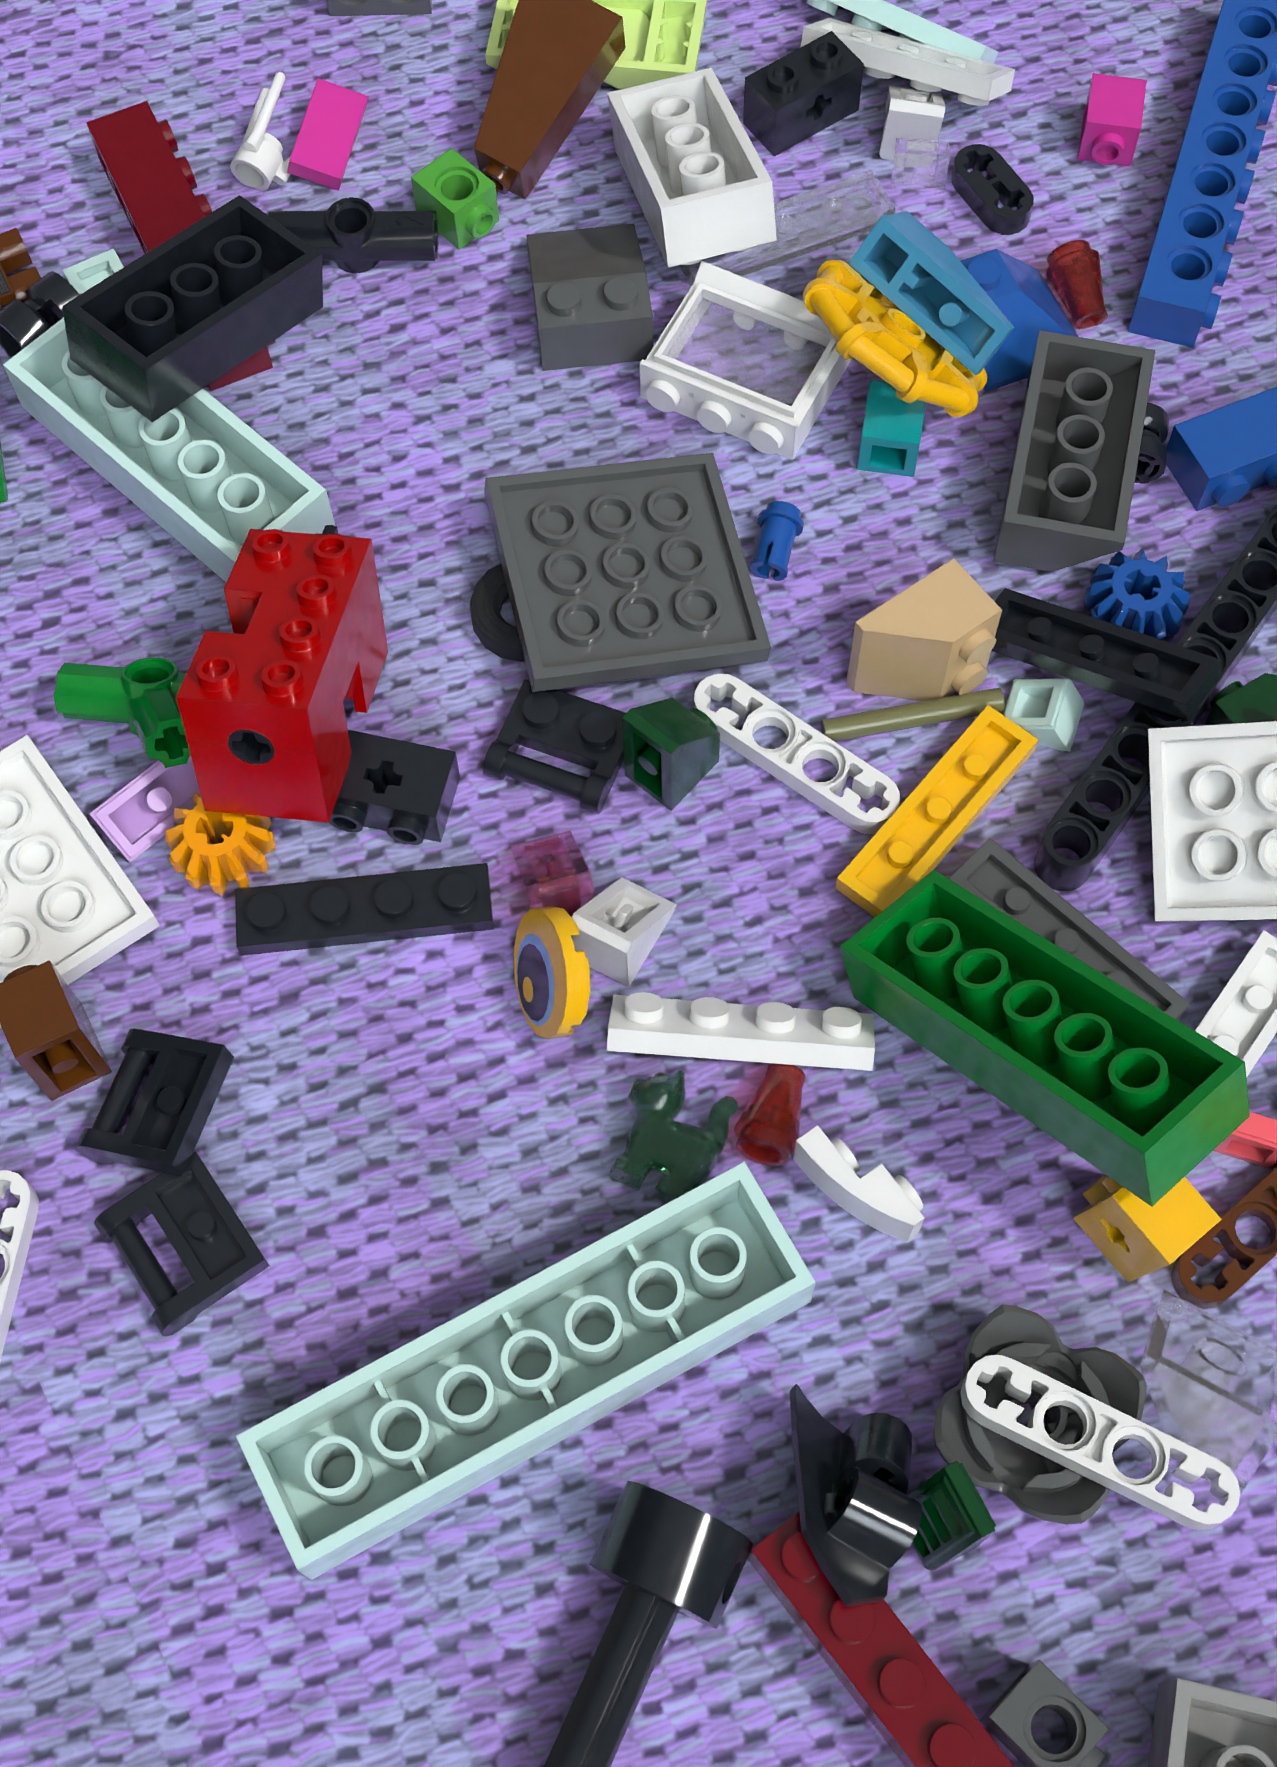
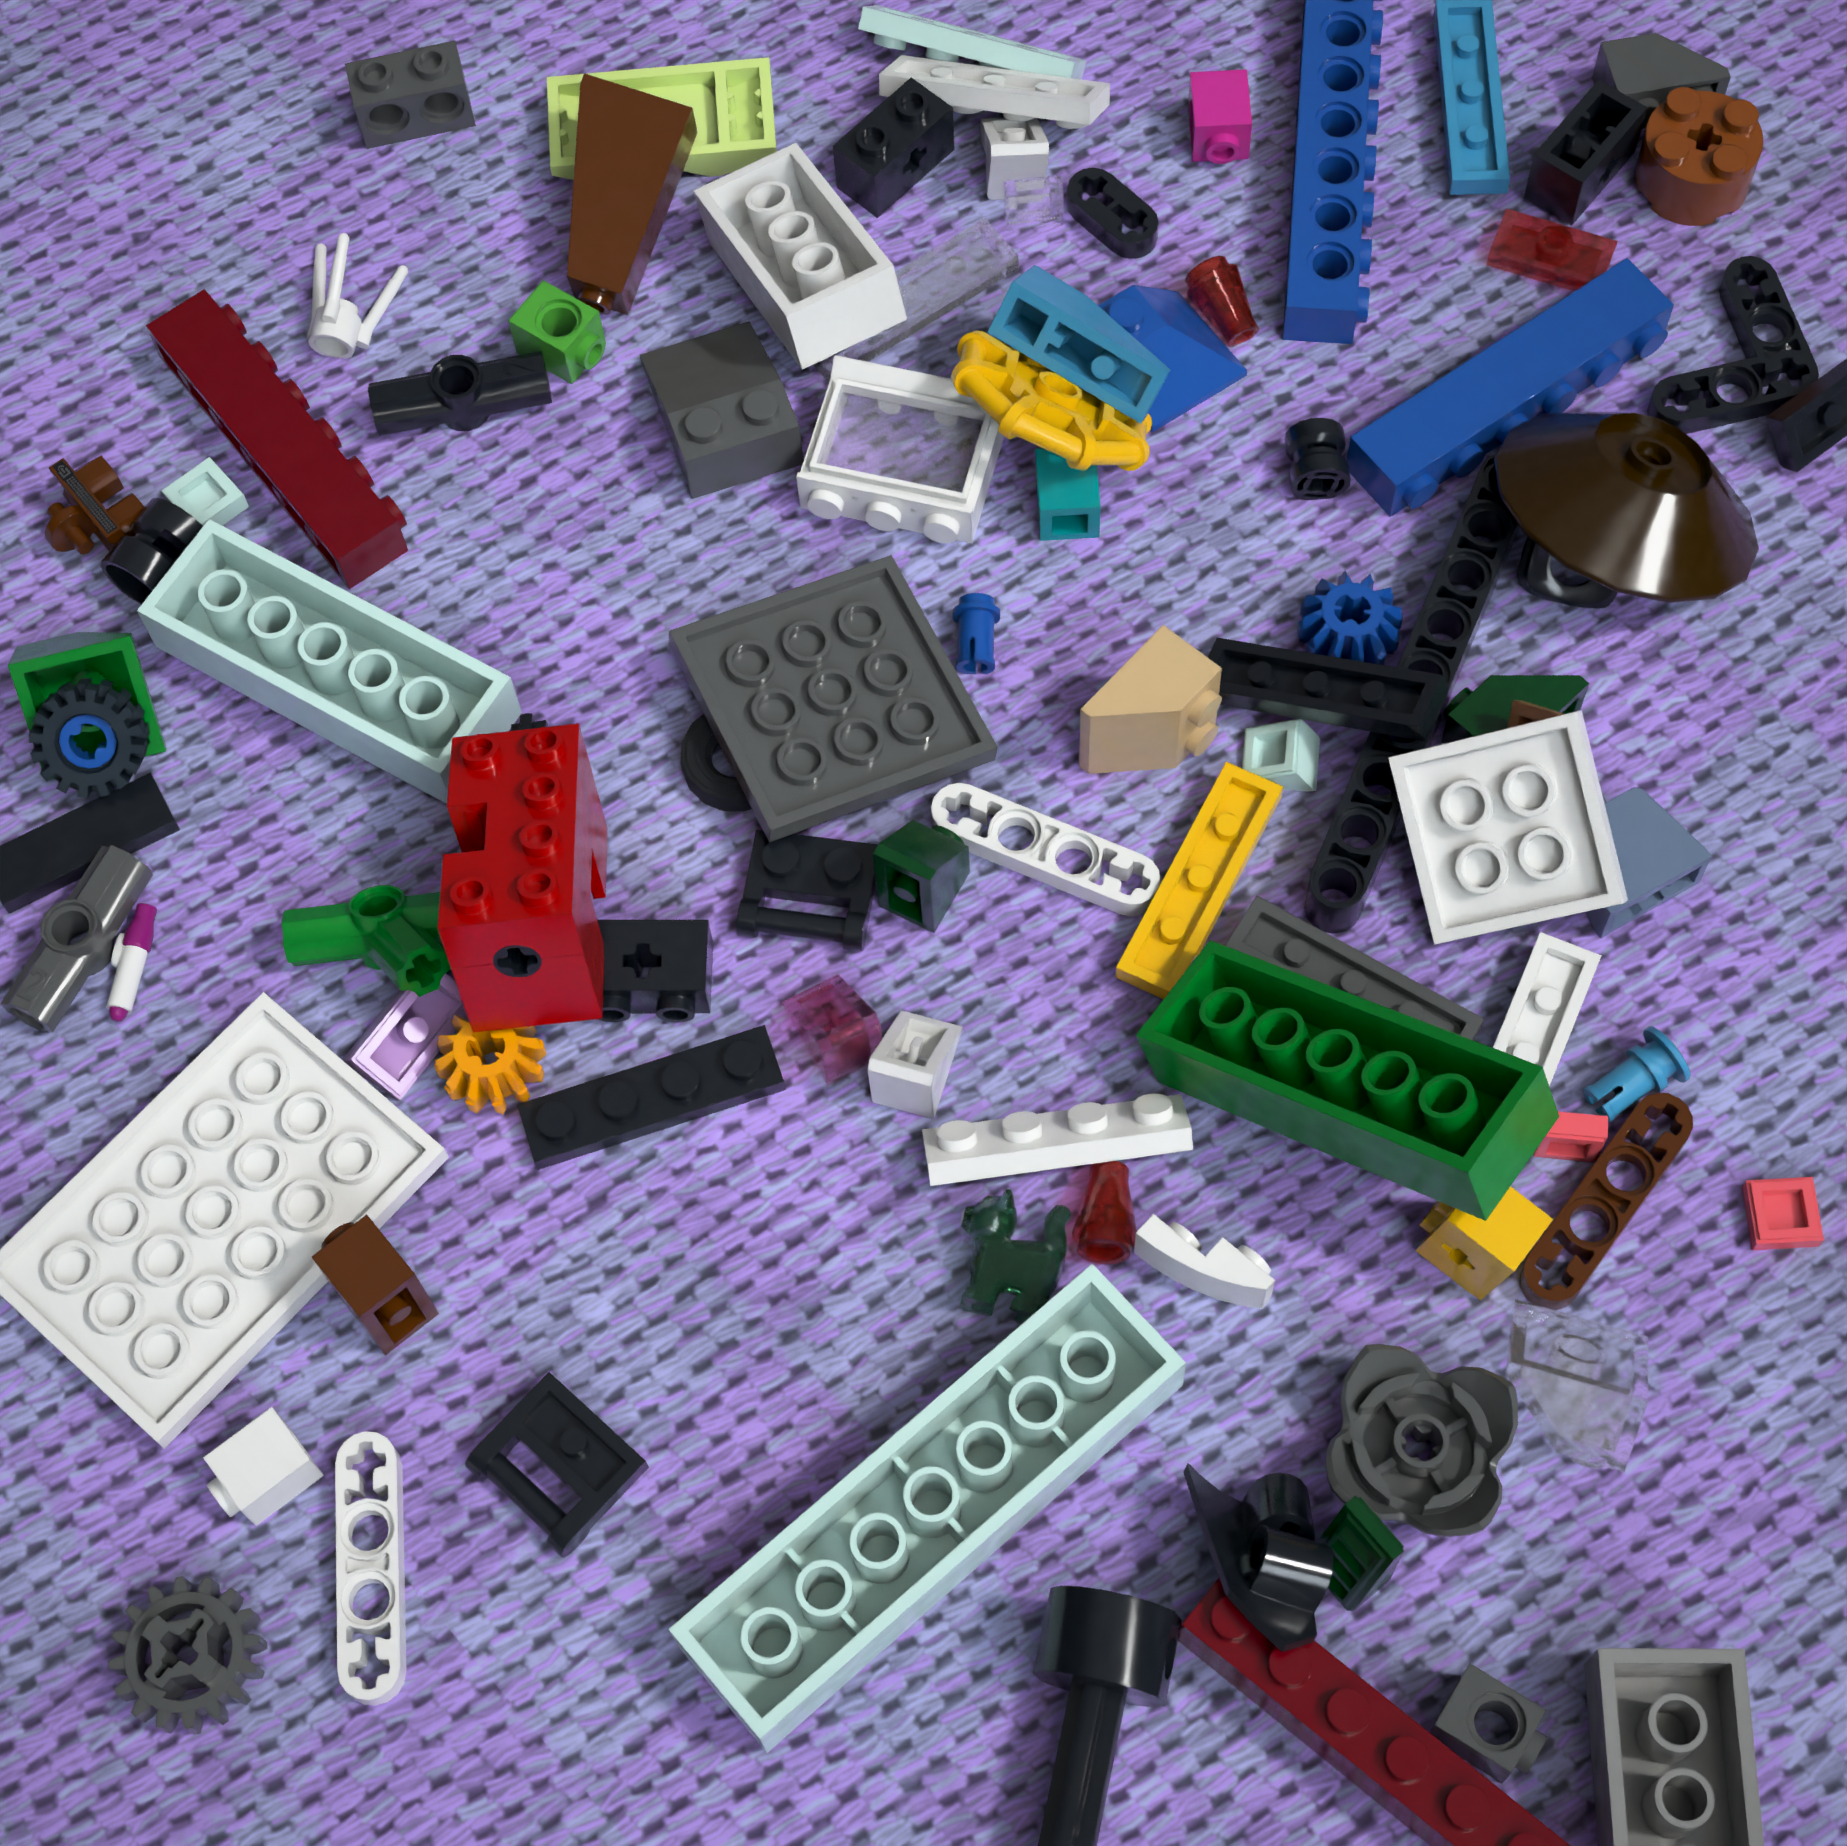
camera: 10 degrees left, 0 degrees up
(169, 1108) = (512, 1336): black plate -> none
(194, 307) = (329, 513): black brick -> none
(327, 134) = (402, 285): dark pink tile -> none
(549, 972) = (856, 1121): yellow tile -> none
(912, 715) = (1152, 786): olive bar -> none
(1075, 452) = (1257, 484): dark grey slope -> none
(1101, 1430) = (1479, 1463): white beam -> none

